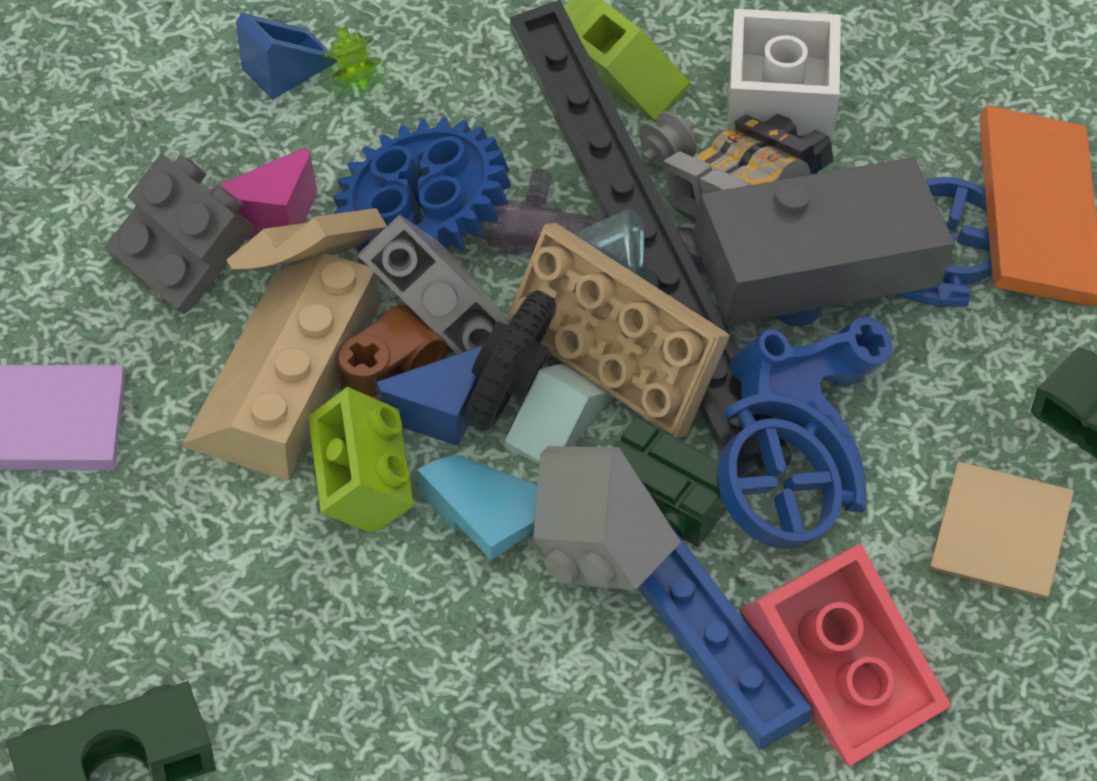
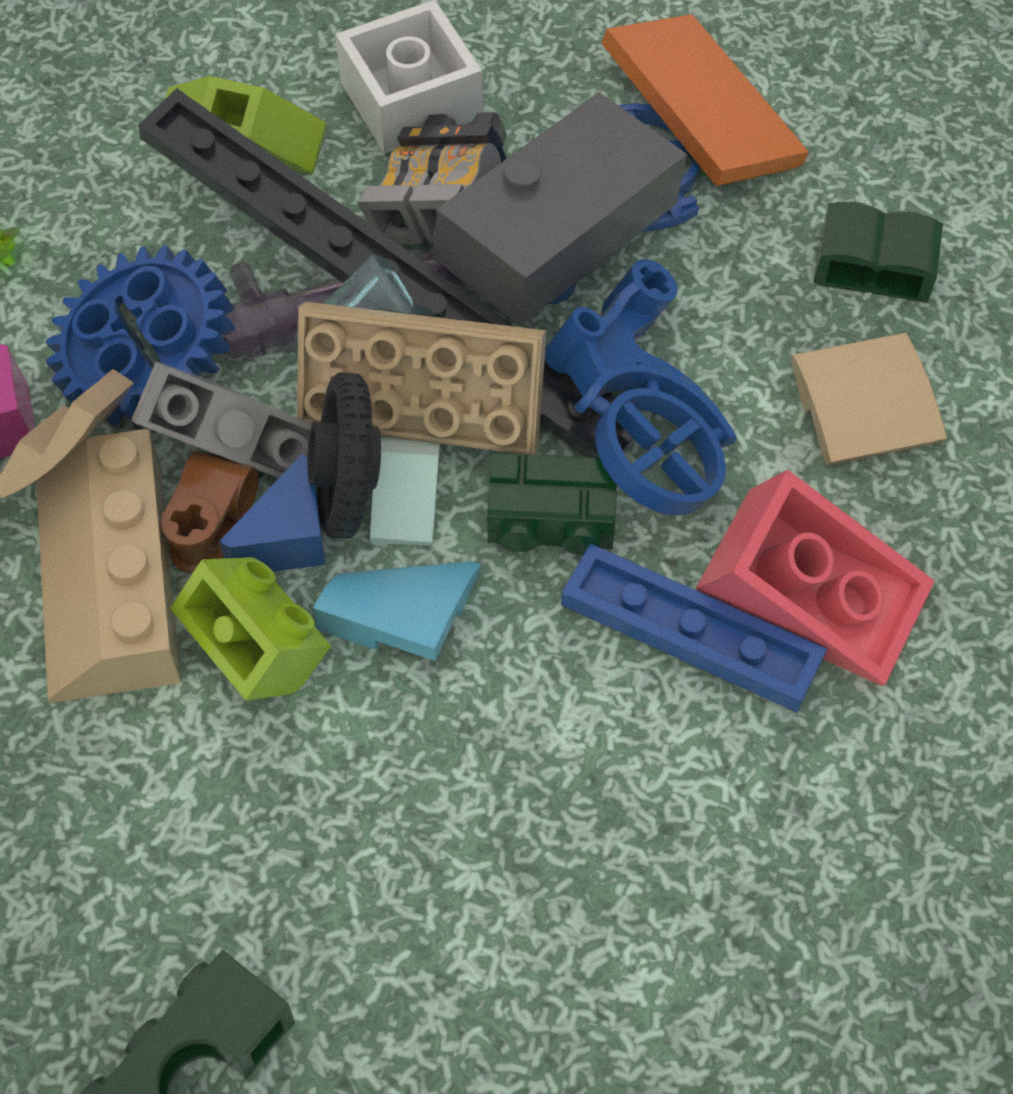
camera: 30 degrees left, 5 degrees up
(598, 519) = (528, 568): light grey slope -> none
(667, 138) = (343, 180): light grey wheel -> none

